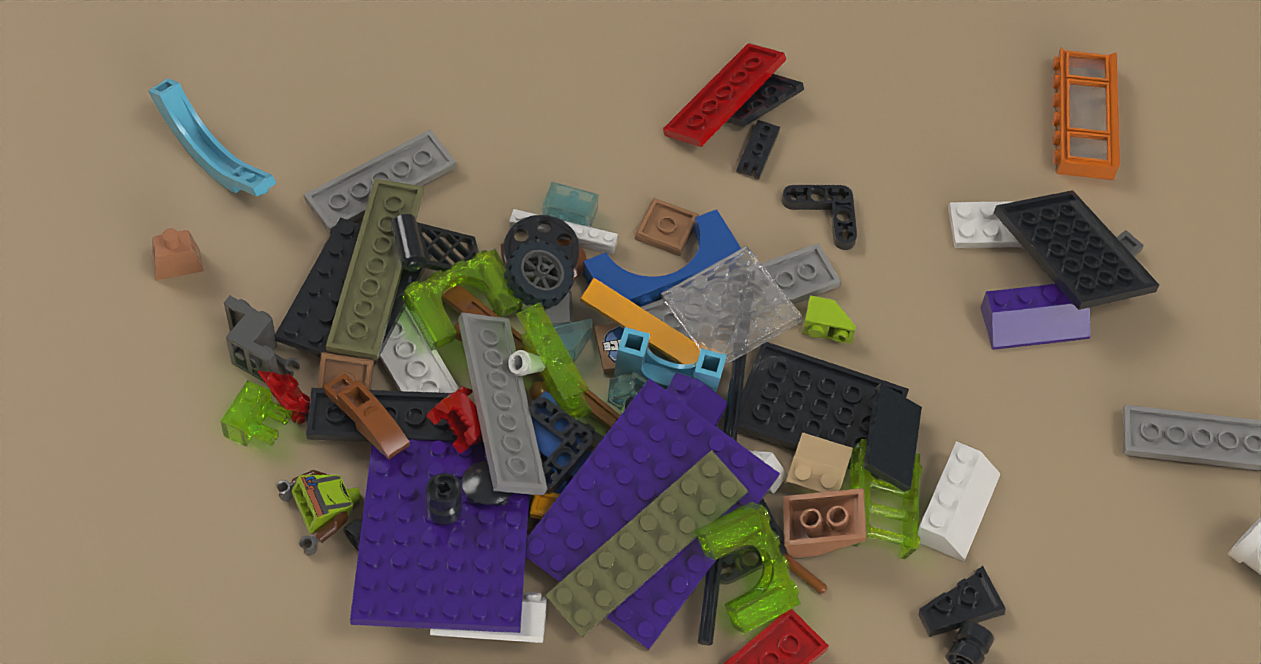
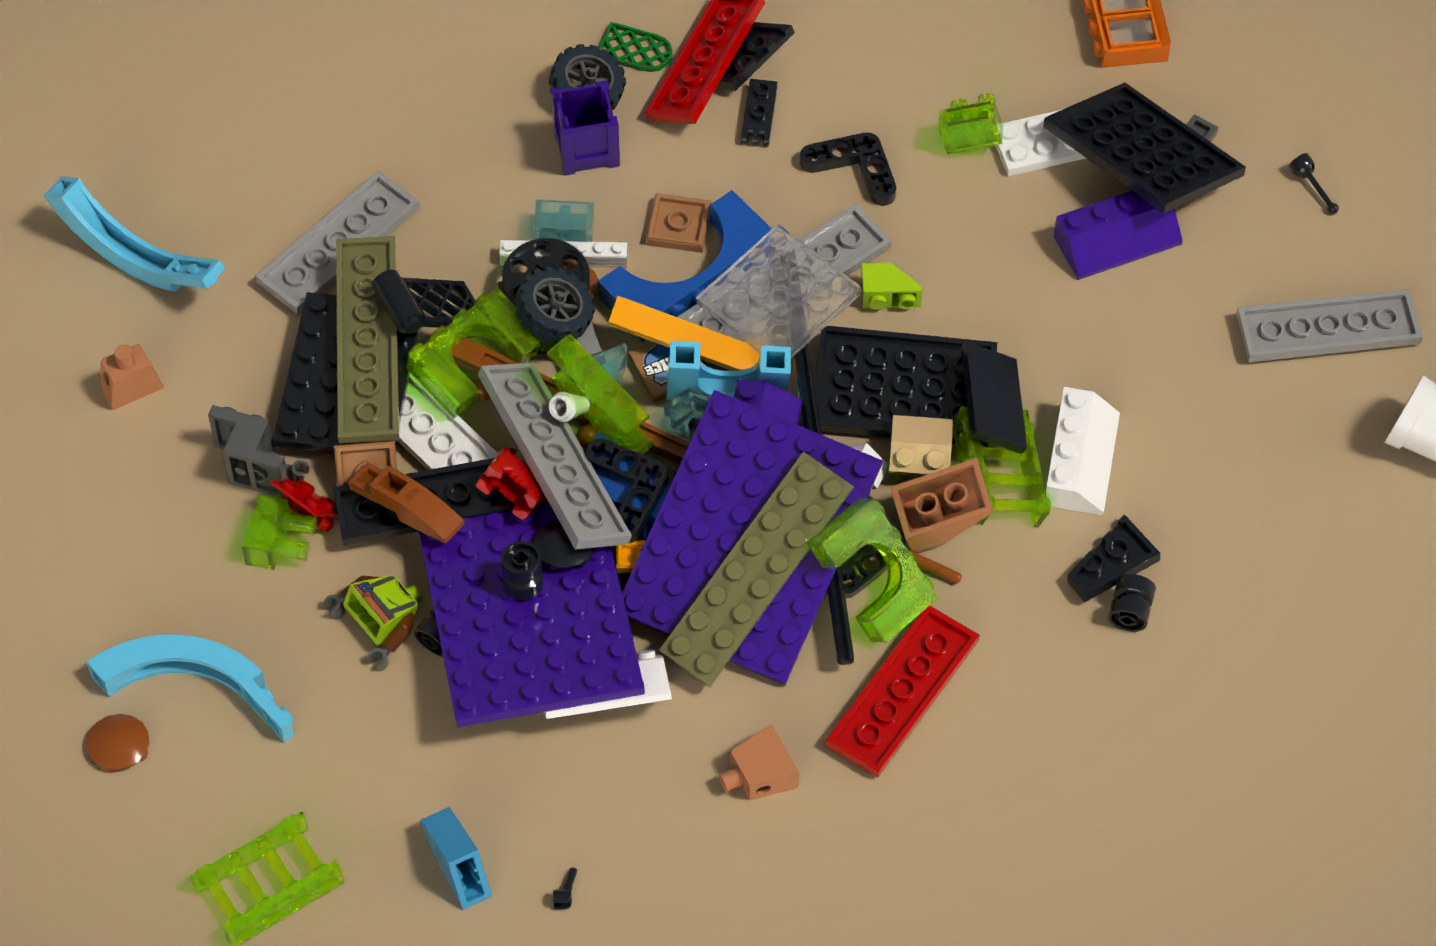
camera: 10 degrees left, 0 degrees up
(68, 567) = (117, 742): none -> dark orange dish
(141, 501) = (189, 655): none -> medium azure arch
(609, 131) = (585, 128): none -> dark purple container
(629, 78) = (590, 63): none -> wheel
(642, 74) = (645, 35): none -> green window
(932, 198) = (971, 125): none -> clear neon green brick
(1210, 295) = (1304, 167): none -> black hinge

